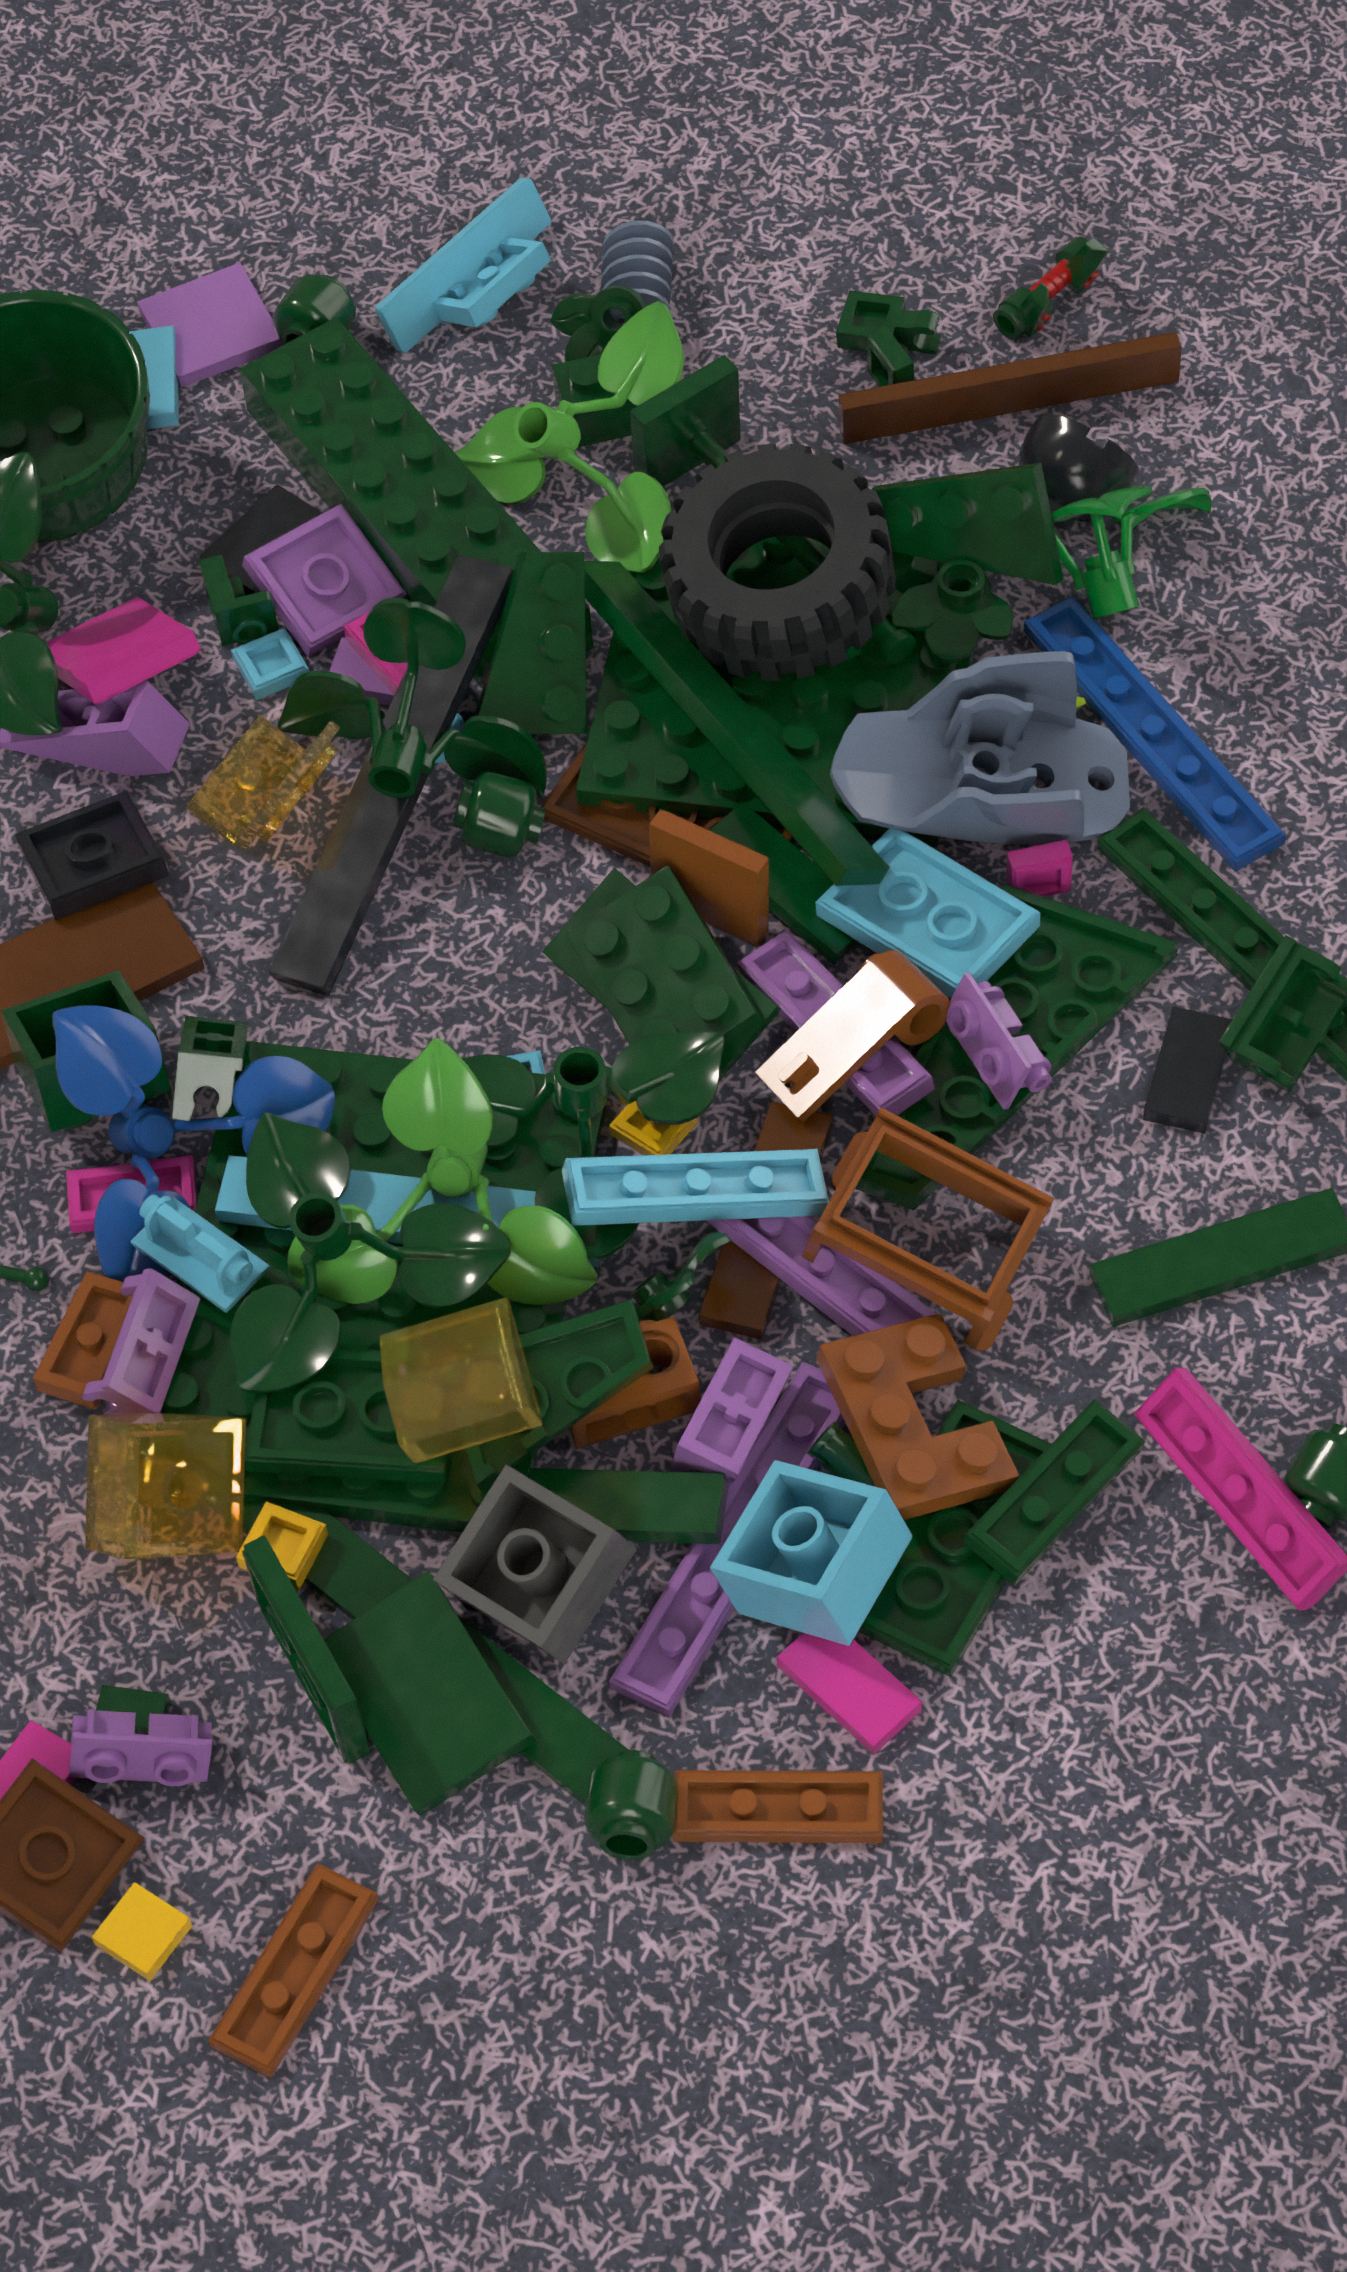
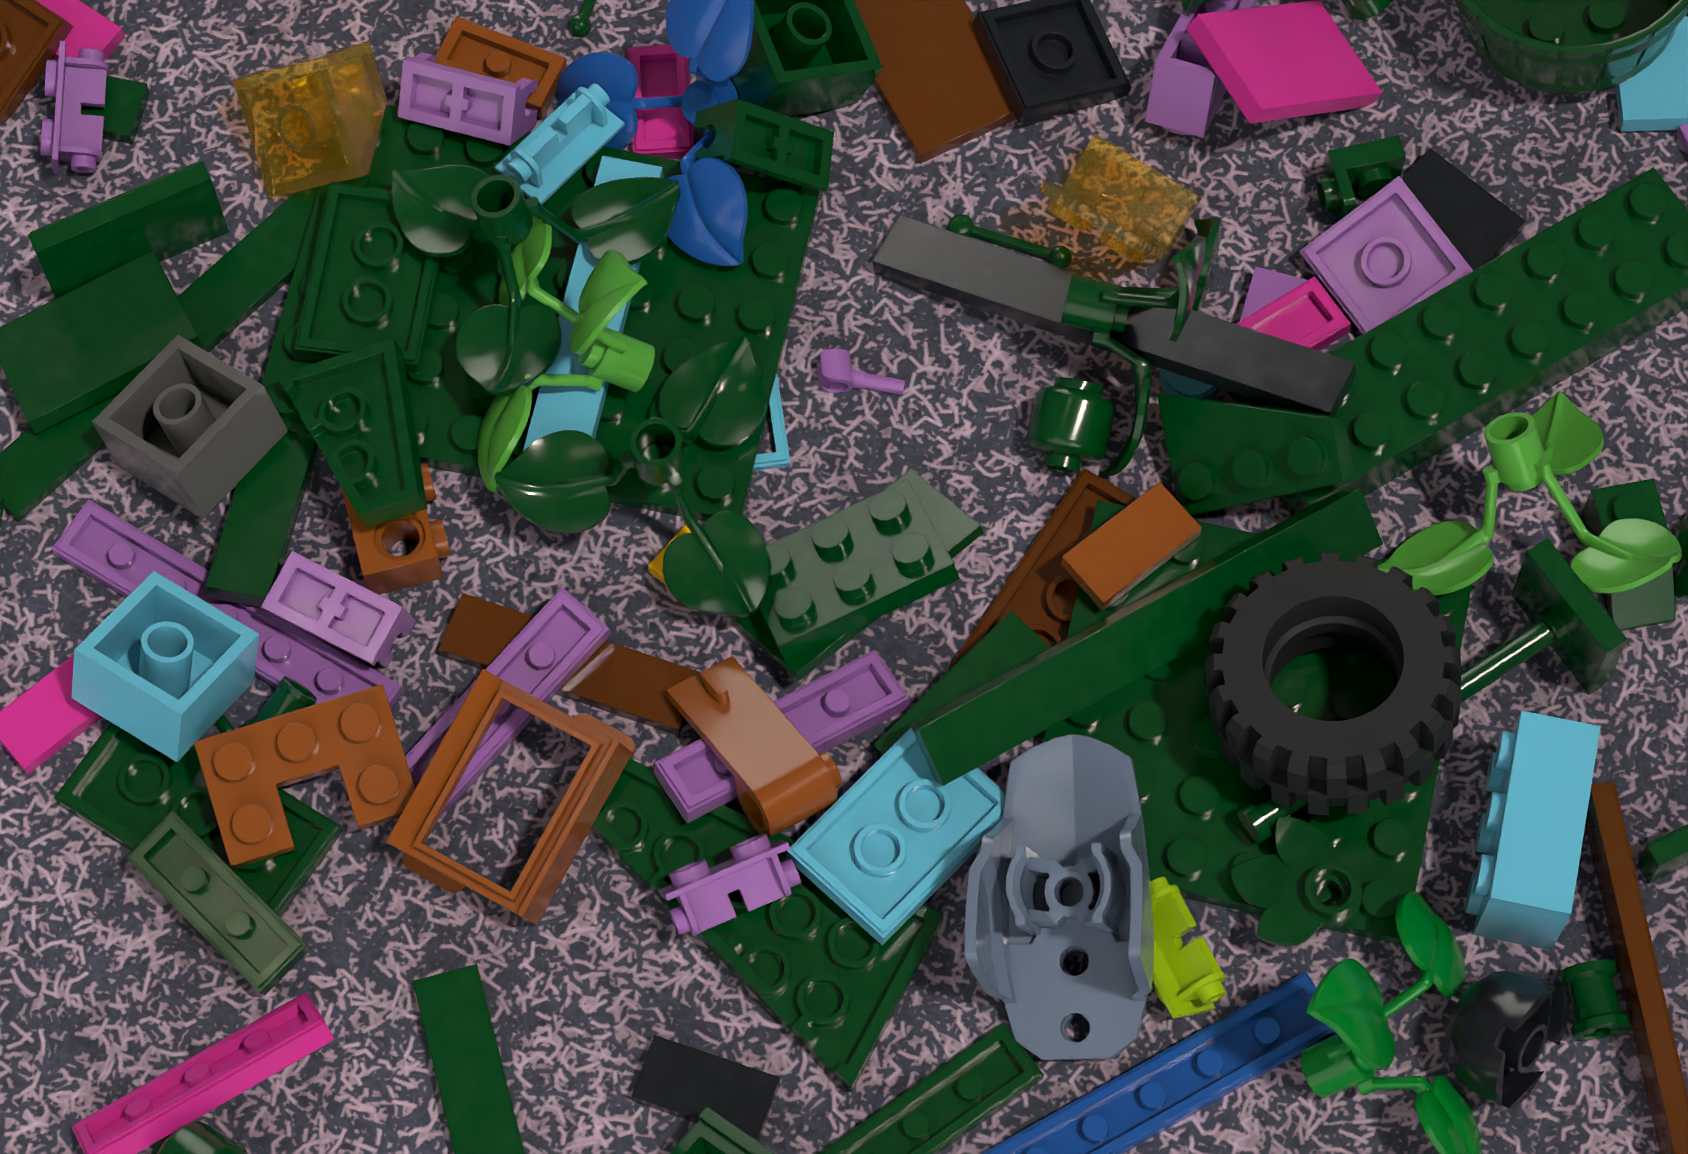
camera: 90 degrees right, 10 degrees up
(269, 663) = (1290, 218): medium azure tile -> none
(277, 926) = (964, 226): none -> dark green hinge
(292, 1538) = (259, 225): yellow tile -> none
(442, 1015) = (837, 376): none -> medium lavender hand
(457, 1381) = (354, 342): clear yellow slope -> none
(631, 748) = (1131, 546): none -> dark orange tile
(662, 1296) = (484, 560): dark green plate -> none
(694, 1187) = (565, 574): medium azure tile -> none
(719, 875) = (952, 612): dark orange tile -> none
(893, 426) = (1532, 830): none -> medium azure brick
(979, 516) = (1403, 891): dark green wing -> none
(1017, 418) = (1594, 1000): none -> dark green bush
(1041, 868) = (951, 936): dark pink tile -> none

